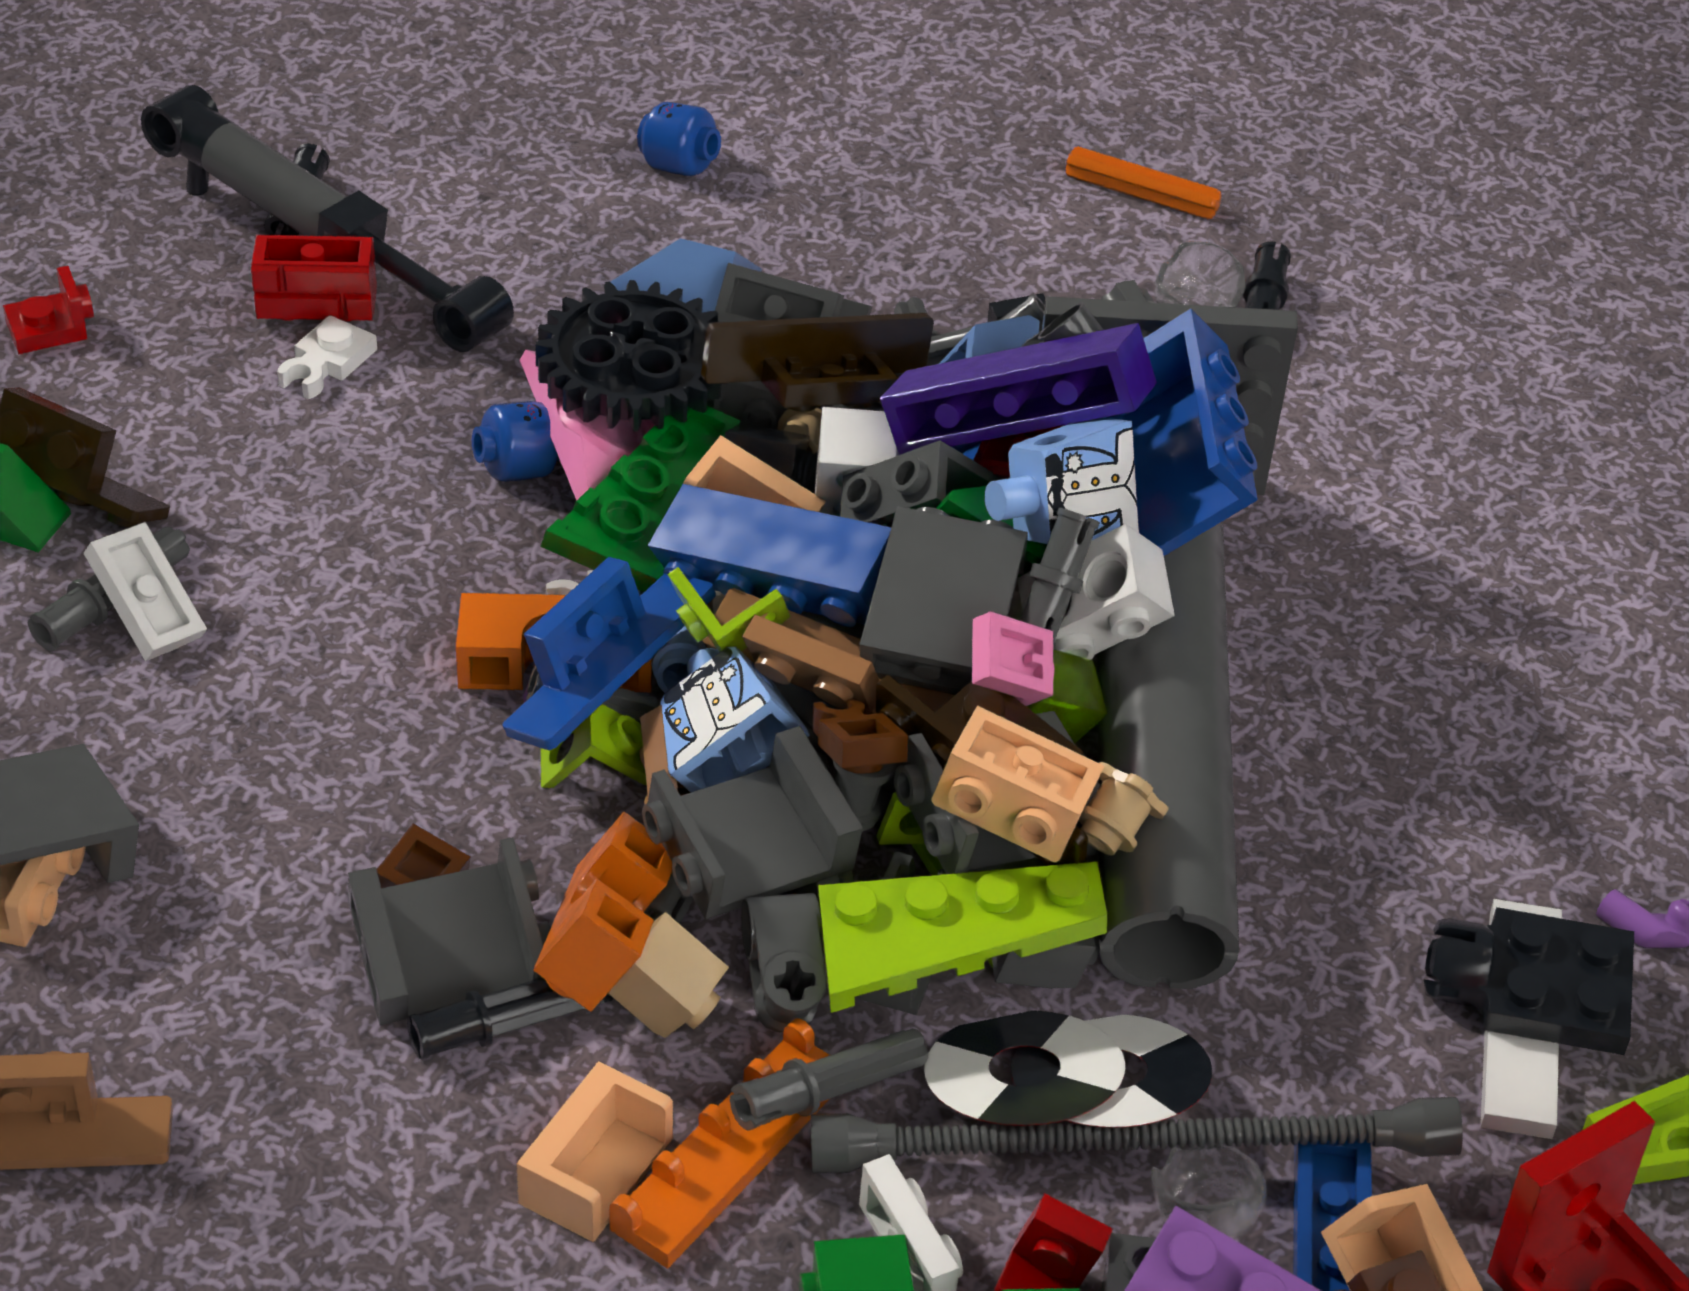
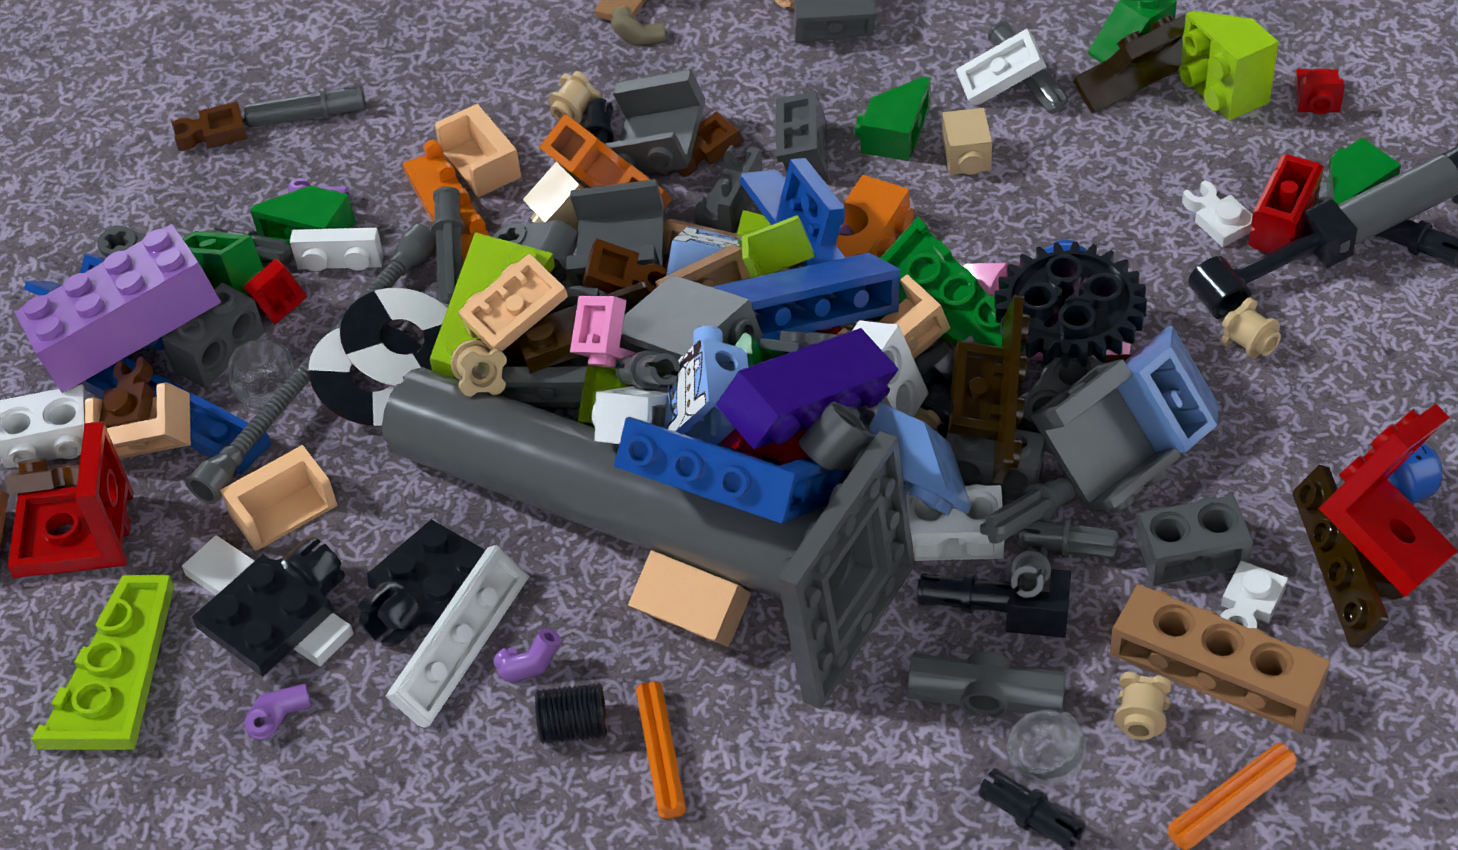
camera: 125 degrees right, 5 degrees up
(75, 349) = (1228, 62): none -> lime slope
(192, 1075) = (633, 31): none -> dark tan arm
(218, 243) = (1358, 169): none -> green slope
(291, 676) = (895, 120): none -> green slope
(310, 593) = (966, 141): none -> tan brick
(379, 755) = (802, 131): none -> dark grey hinge
(418, 1076) = (572, 96): none -> tan brick
(530, 277) = (1251, 330): none -> tan brick
(539, 802) = (728, 198): none -> dark grey hinge
(776, 100) = (1380, 516): none -> red bracket
(809, 160) = (1348, 574): none -> dark brown bracket
(866, 254) = (1193, 539): none -> dark grey brick
(902, 218) = (1252, 595): none -> white plate
(1000, 210) = (1236, 678): none -> medium nougat brick
(1098, 245) = (1142, 705): none -> tan brick
(1253, 591) = (690, 598): none -> light nougat panel
(1369, 1072) = (279, 497): none -> light nougat panel
(1382, 853) = (416, 582): none -> black plate
(1405, 714) = (517, 666): none -> medium lavender arm
(1414, 572) = (660, 750): none -> orange axle
(1429, 782) = (457, 636): none -> white tile
(1444, 635) = (570, 713): none -> black piece

